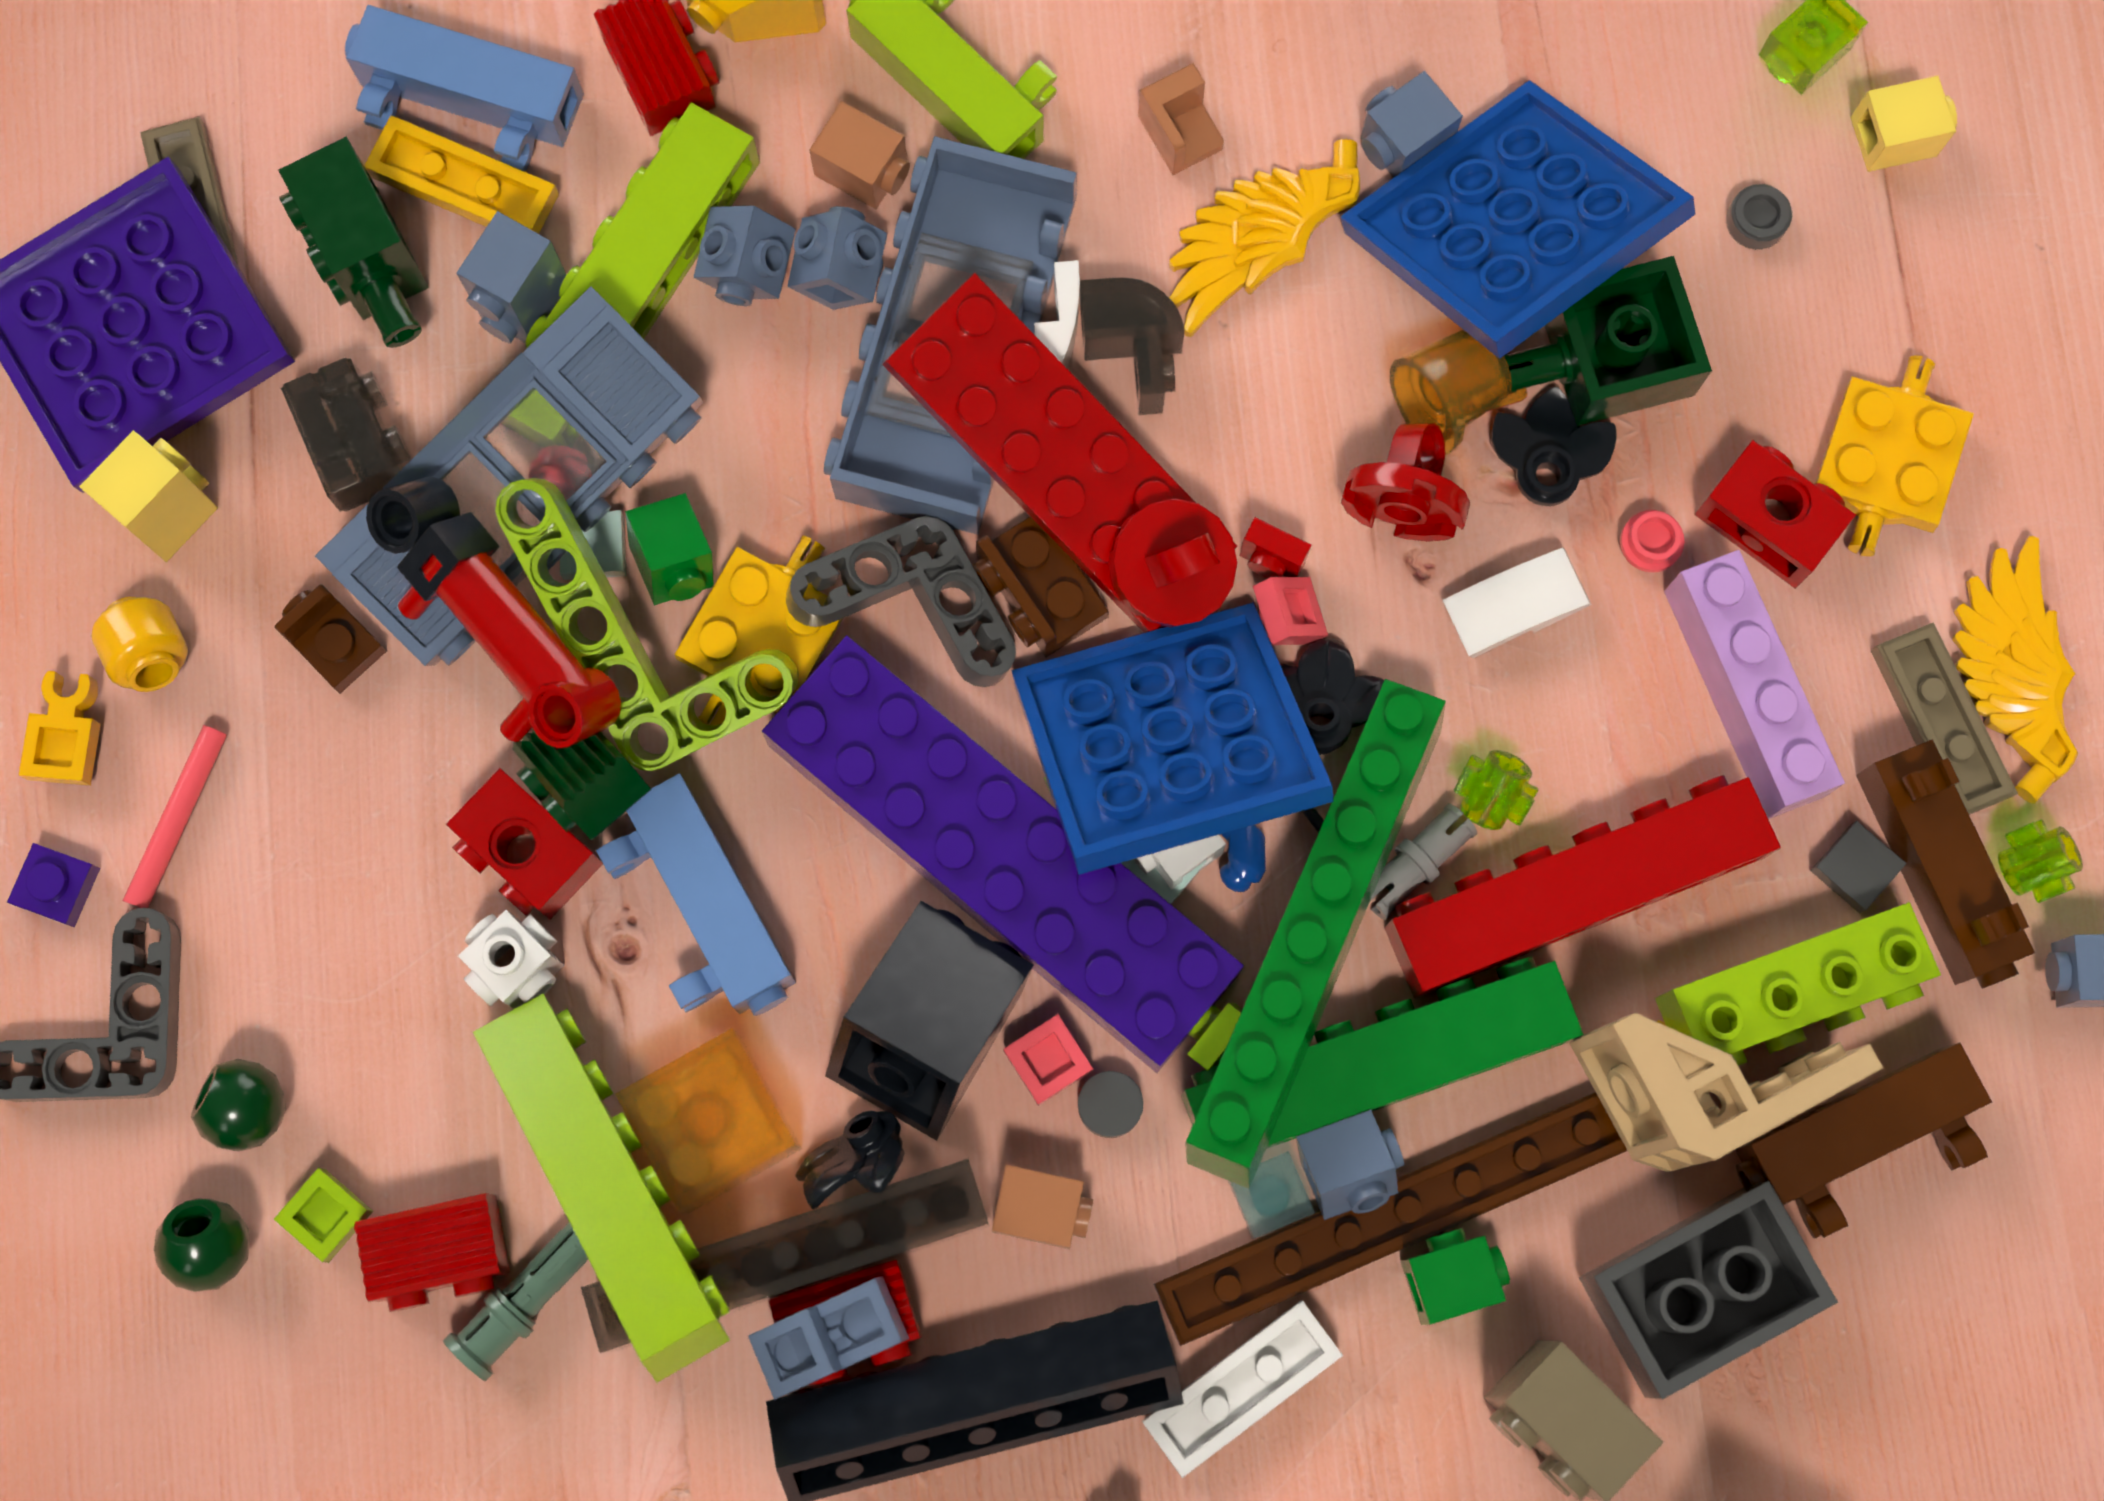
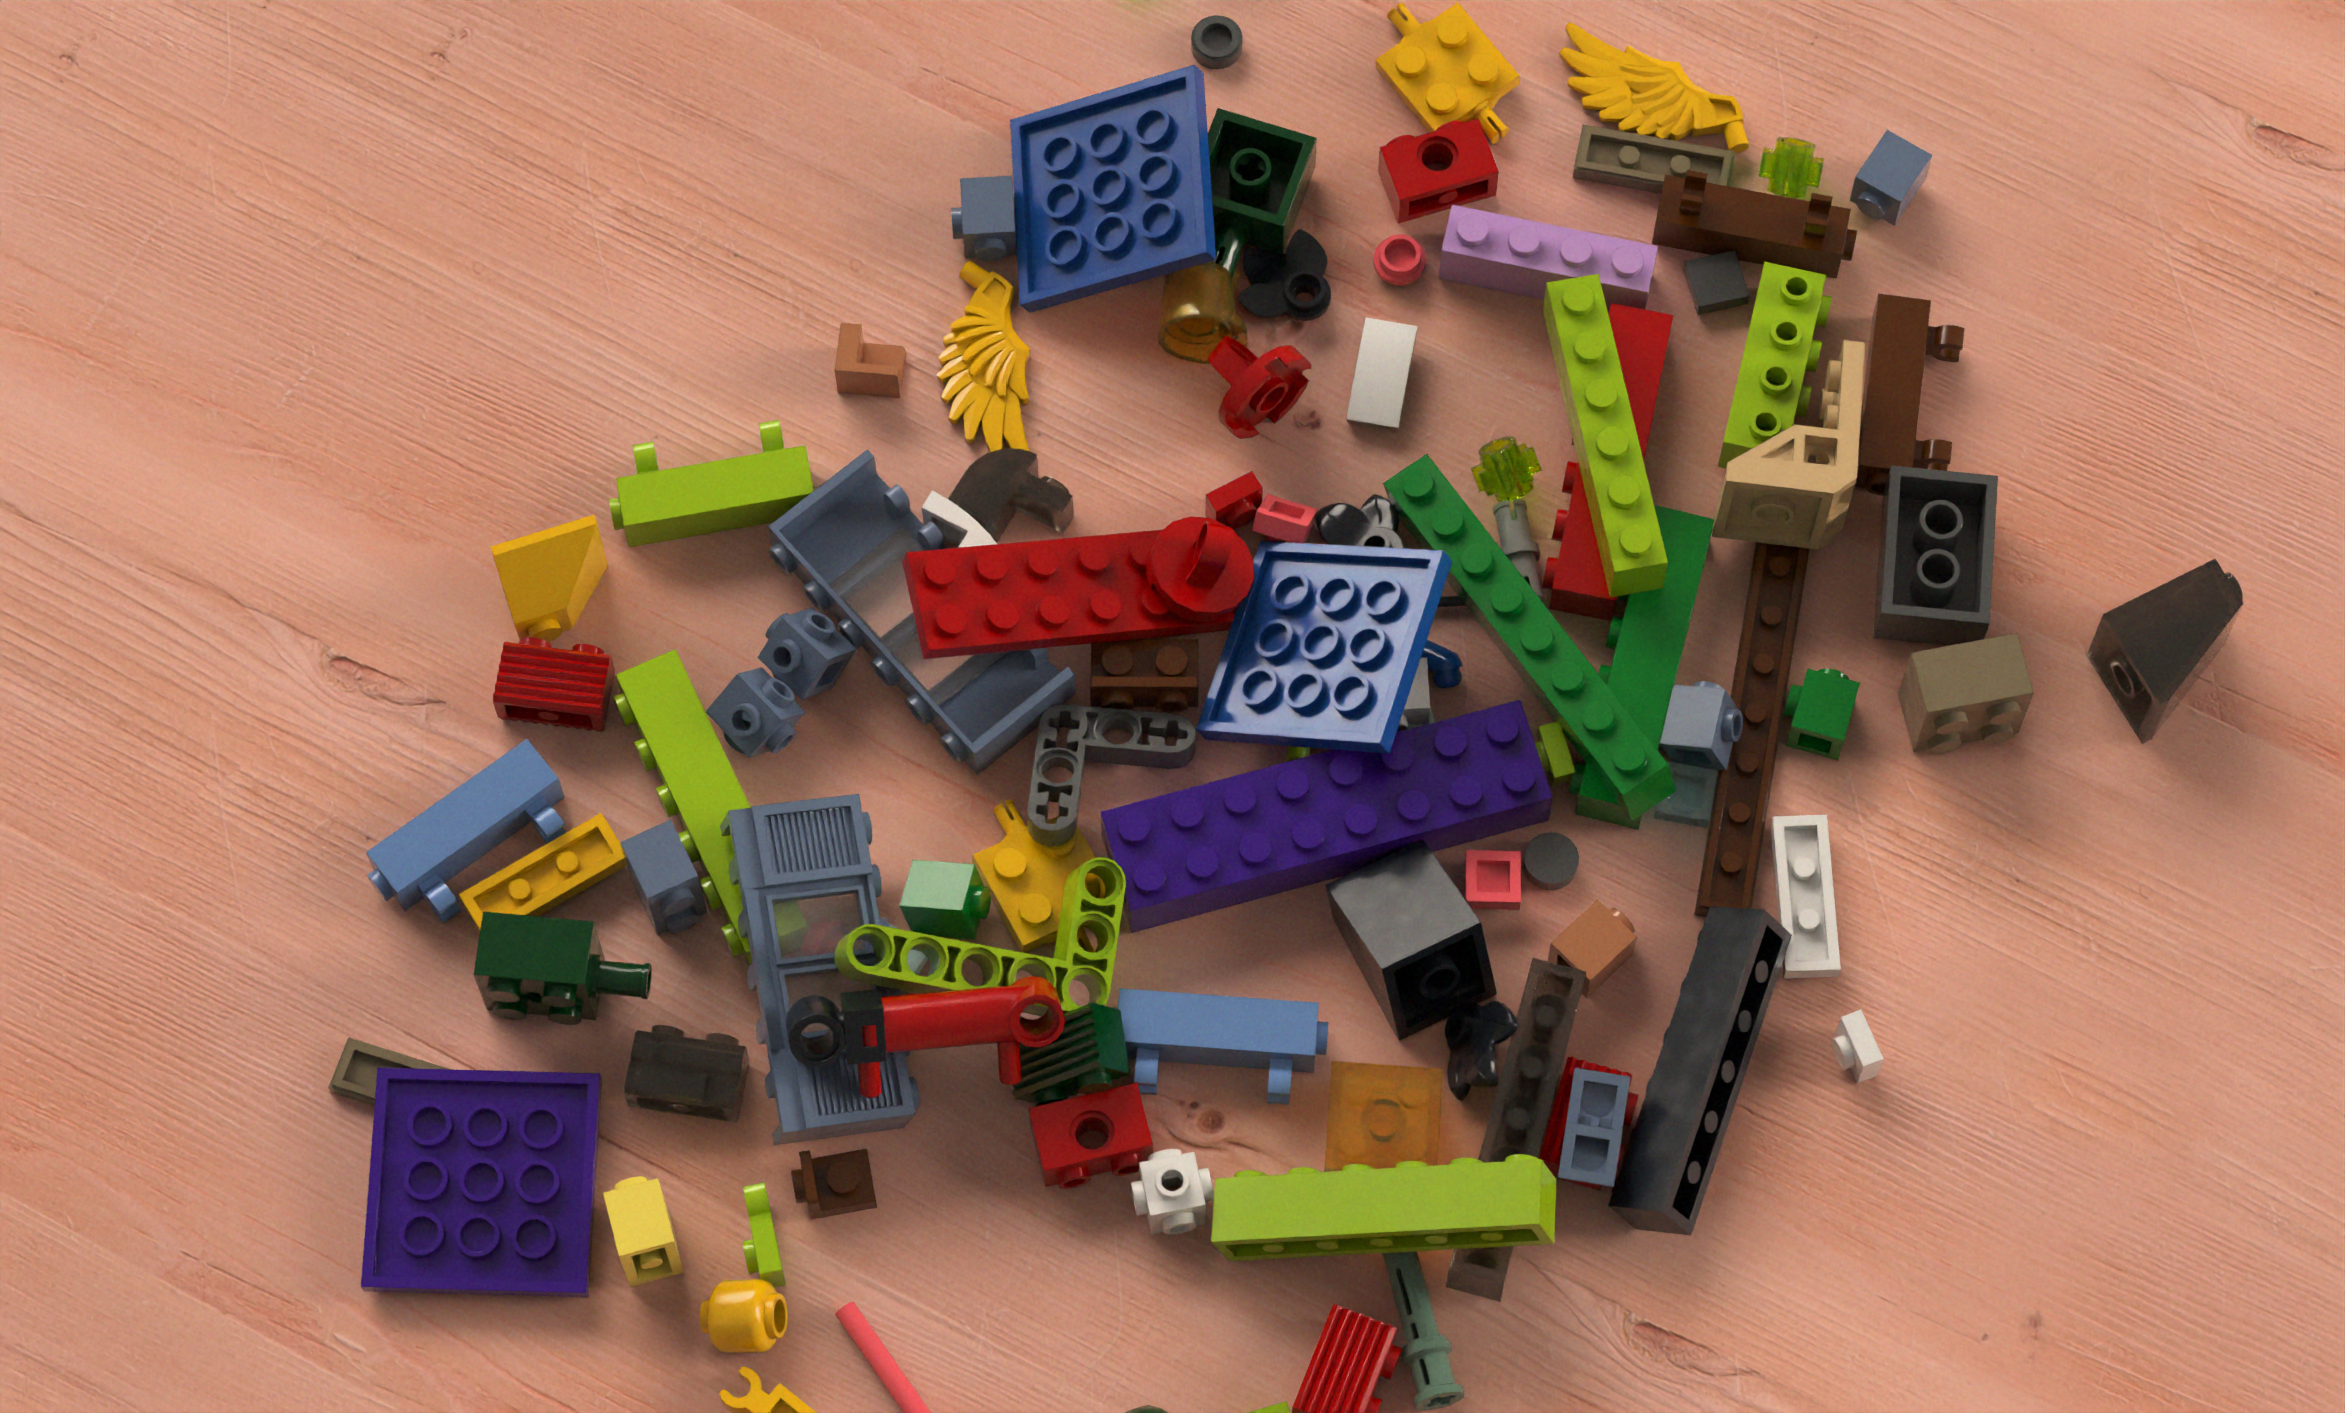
camera: 55 degrees left, 10 degrees down
(222, 616) = (762, 1251): none -> lime plate
(860, 156) = (736, 591): nougat brick -> none
(1589, 864) = (1604, 436): none -> lime brick

